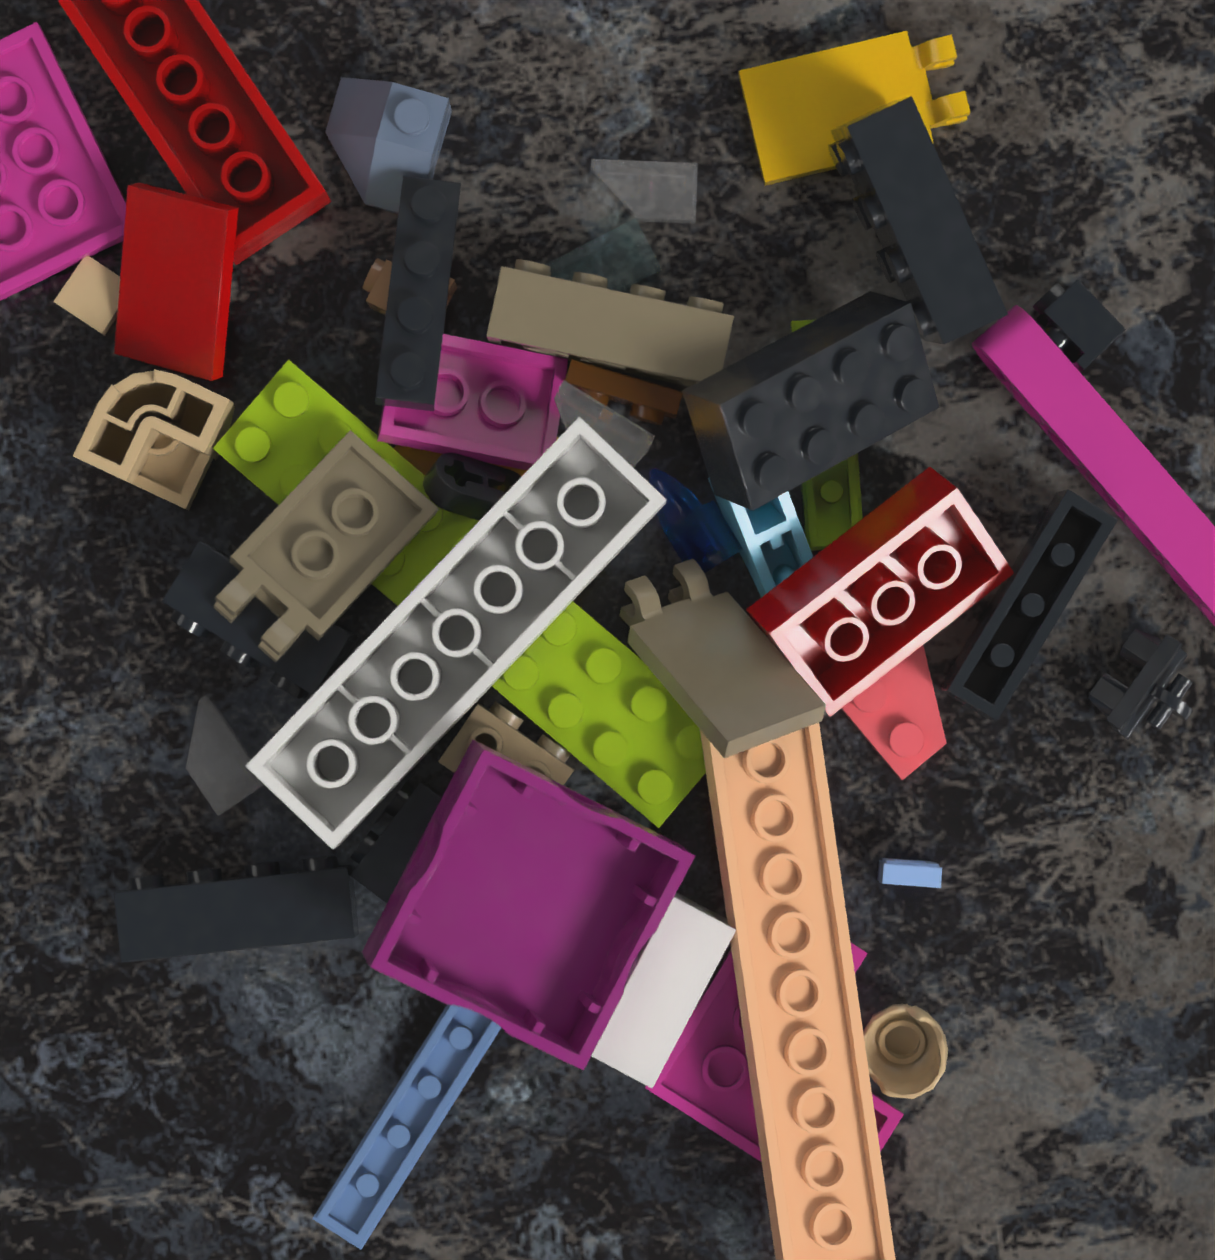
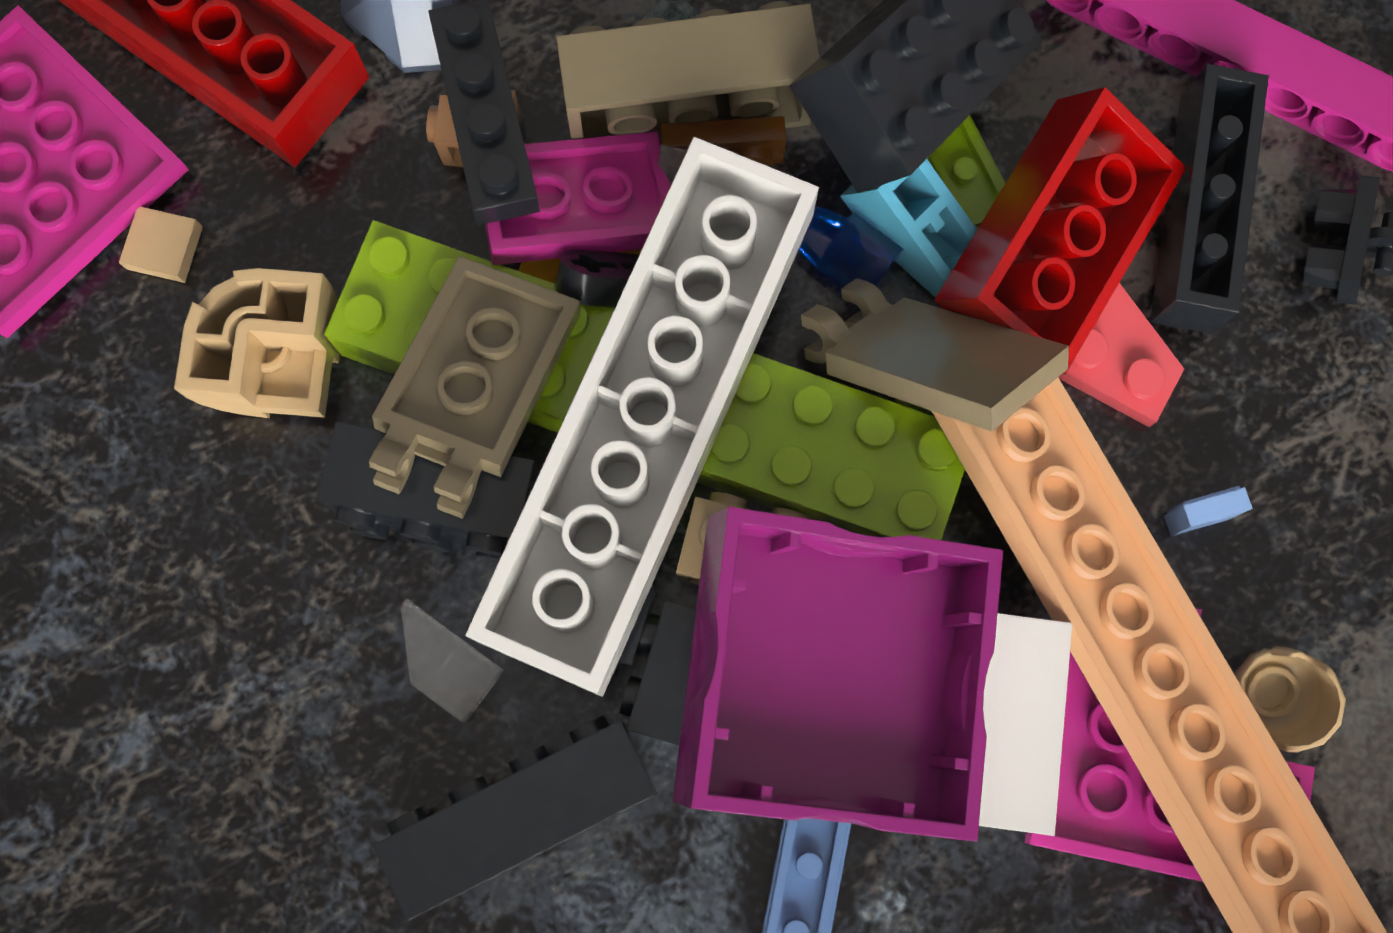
camera: 20 degrees left, 10 degrees down
(175, 280) = (231, 183): red tile -> none

